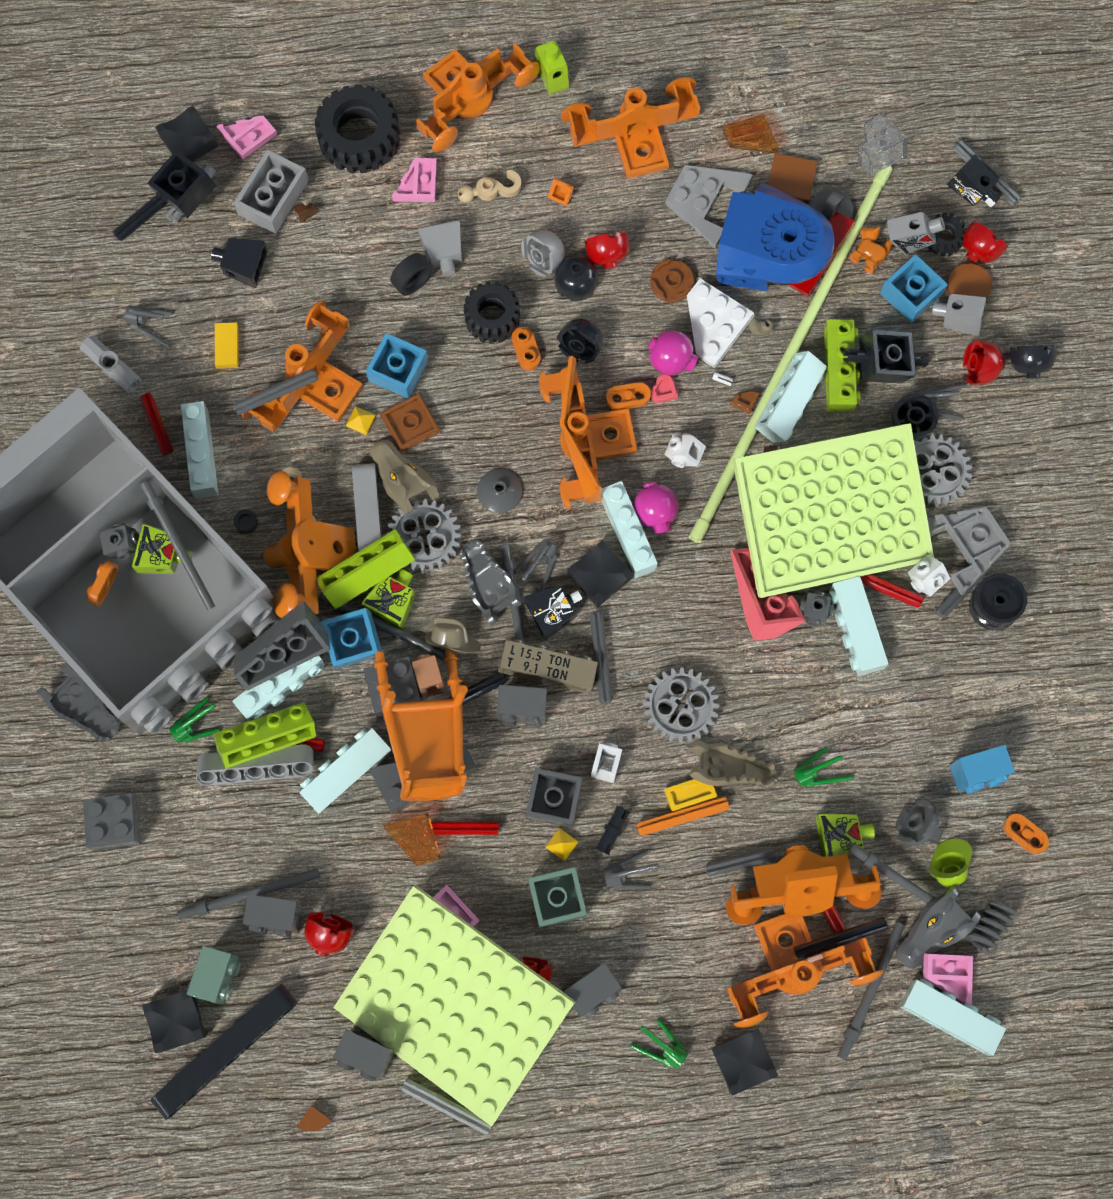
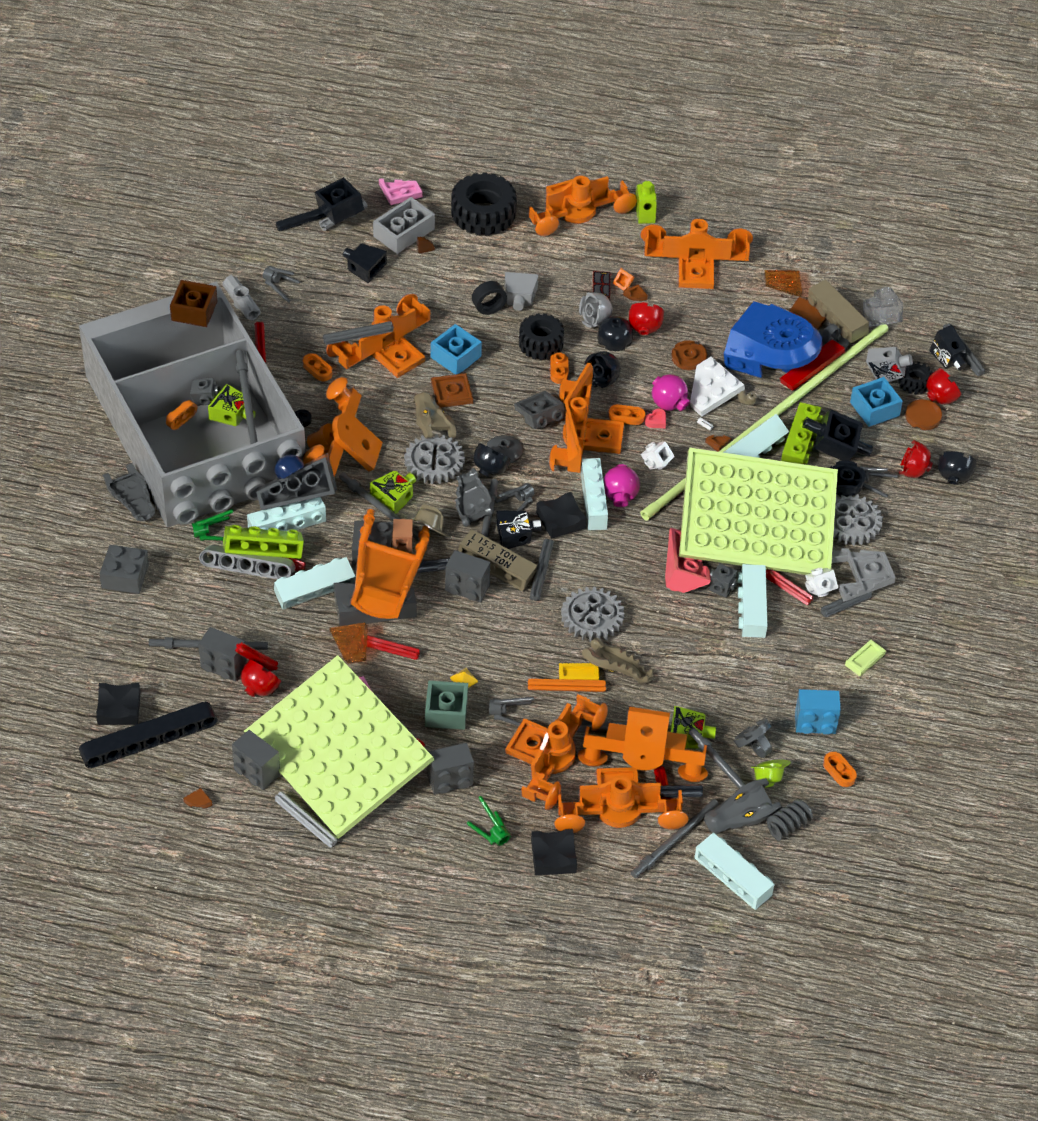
camera: 15 degrees right, 25 degrees down
(64, 441) = (193, 303): none -> reddish brown brick
(187, 135) = (358, 176): black brick -> none
(199, 450) = (287, 360): light aqua brick -> none
(214, 975) = (161, 679): sand green brick -> none
(226, 345) = (332, 310): yellow tile -> none
(239, 441) = (317, 367): none -> orange plate
(264, 637) = (288, 465): none -> dark blue hair
(315, 909) = (252, 654): none -> red axle
(352, 638) = (352, 501): dark azure brick -> none
(360, 420) = (414, 380): yellow slope -> none
(366, 504) = (396, 437): light grey beam -> none
(367, 570) = (381, 458): lime brick -> none
(418, 182) = (516, 249): bright pink wing -> none
(488, 188) = (569, 265): tan piece -> none
(492, 521) = (490, 461): none -> black cylinder
(525, 422) = (540, 409): none -> dark grey plate
(536, 207) = (601, 282): none -> tile
(553, 798) = (469, 642): dark grey brick -> none
(580, 206) = (635, 293): none -> dark orange tile
(606, 762) = (519, 633): white window -> none
(612, 830) = (507, 678): black pin -> none
(690, 923) = (554, 748): none -> orange piece
(696, 192) = (728, 307): light grey wing -> none
(806, 773) = (675, 683): green plant -> none
(830, 166) = (838, 311): none -> dark tan brick
(869, 250) = (852, 372): orange animal -> none
(950, 974) = (743, 839): bright pink wing -> none
(962, 313) = (910, 425): light grey torso -> none
(998, 602) = (870, 611): black wheel -> none
(1006, 663) = (865, 657): none -> yellowish green tile

